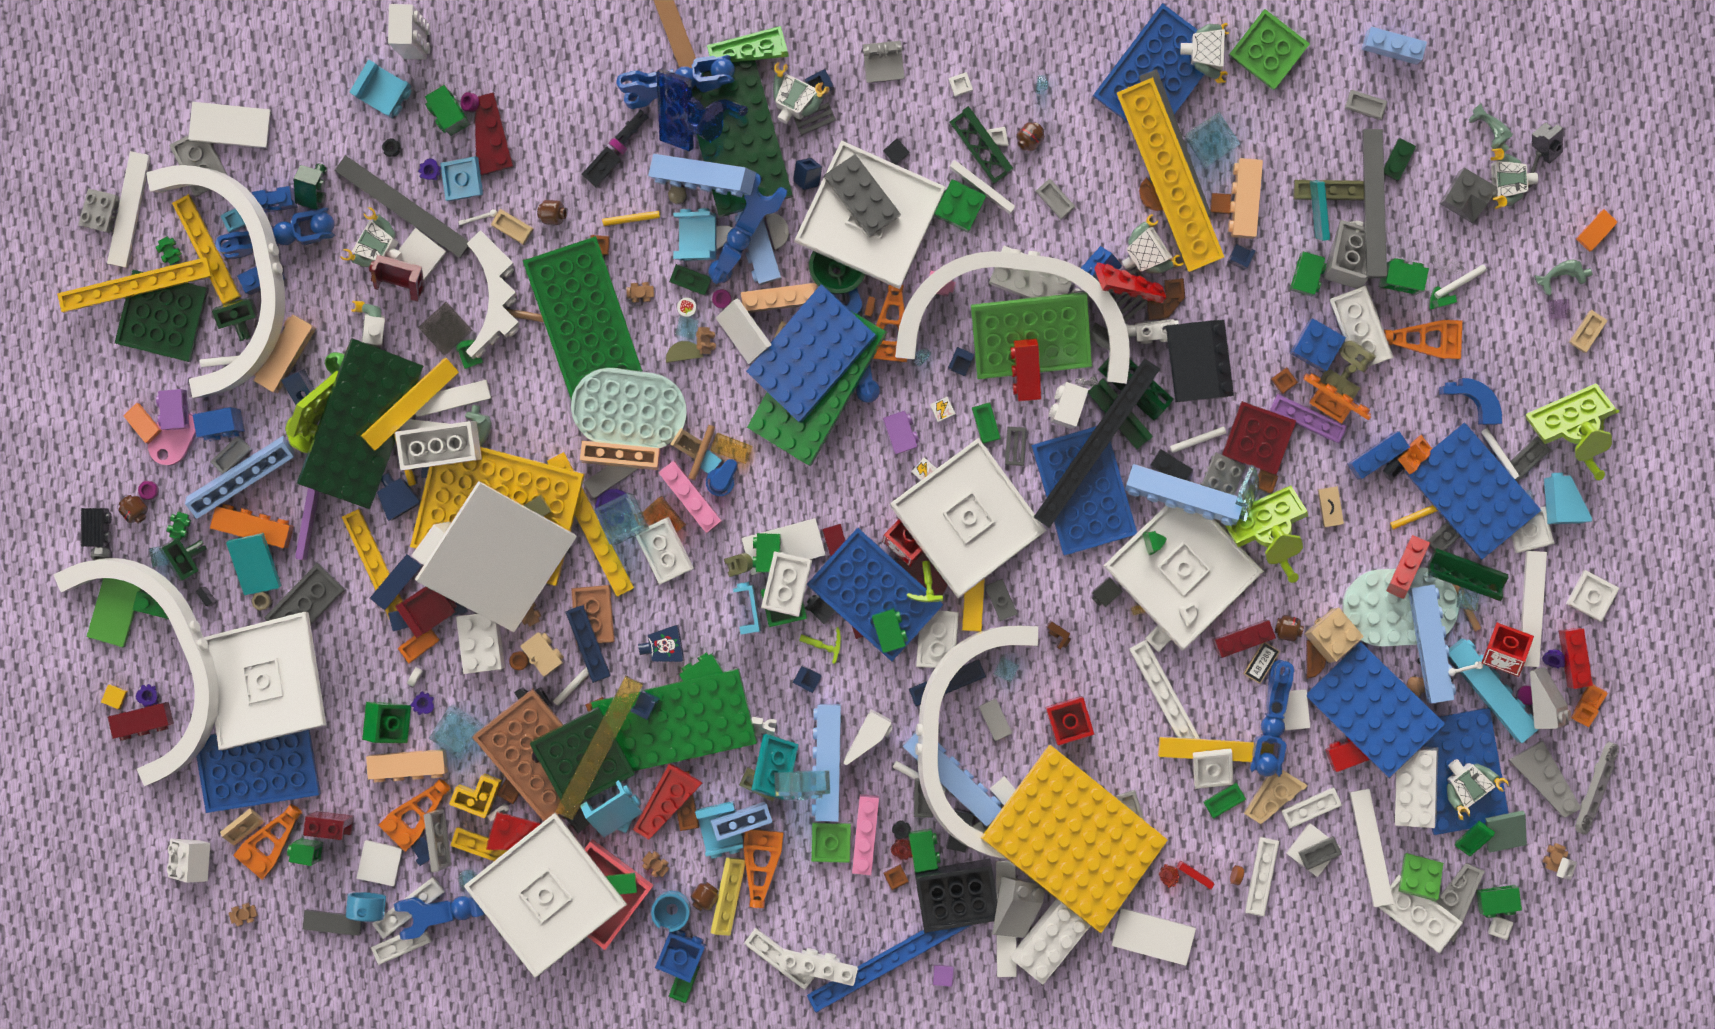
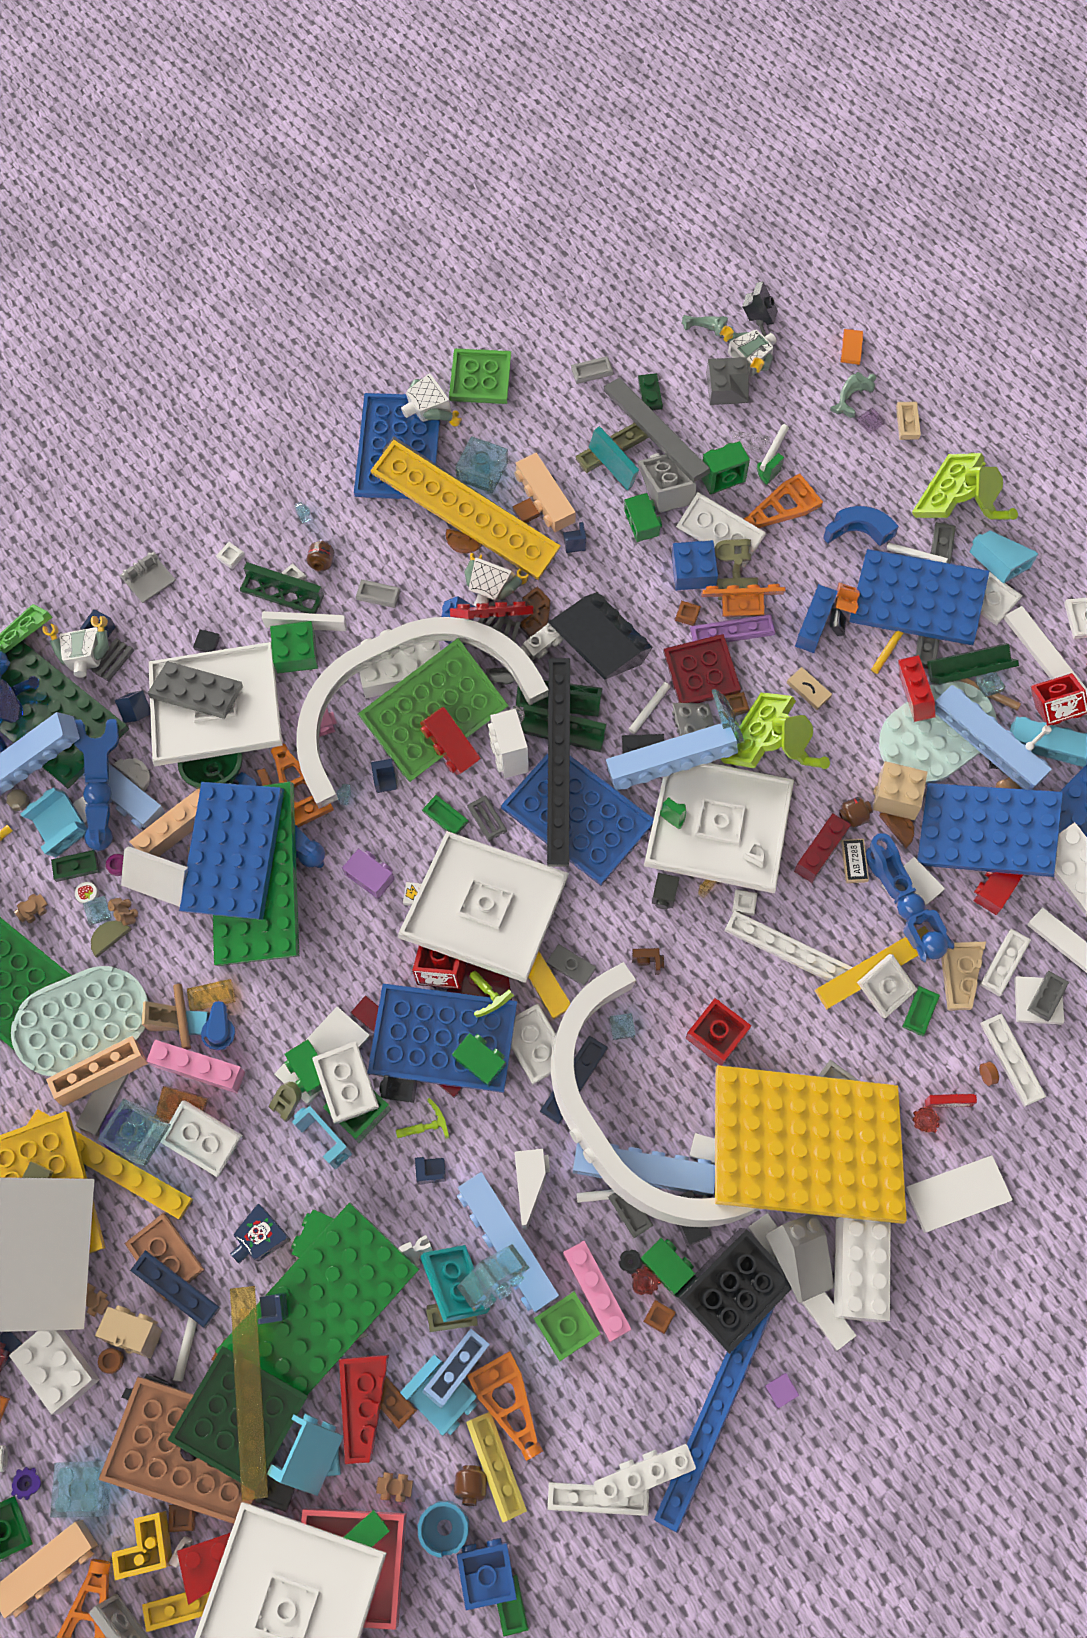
camera: 30 degrees left, 20 degrees down
(942, 409) = (395, 829): tile -> none
(995, 719) = (646, 1083): light grey tile -> none
(1394, 45) = (581, 313): light blue brick -> none

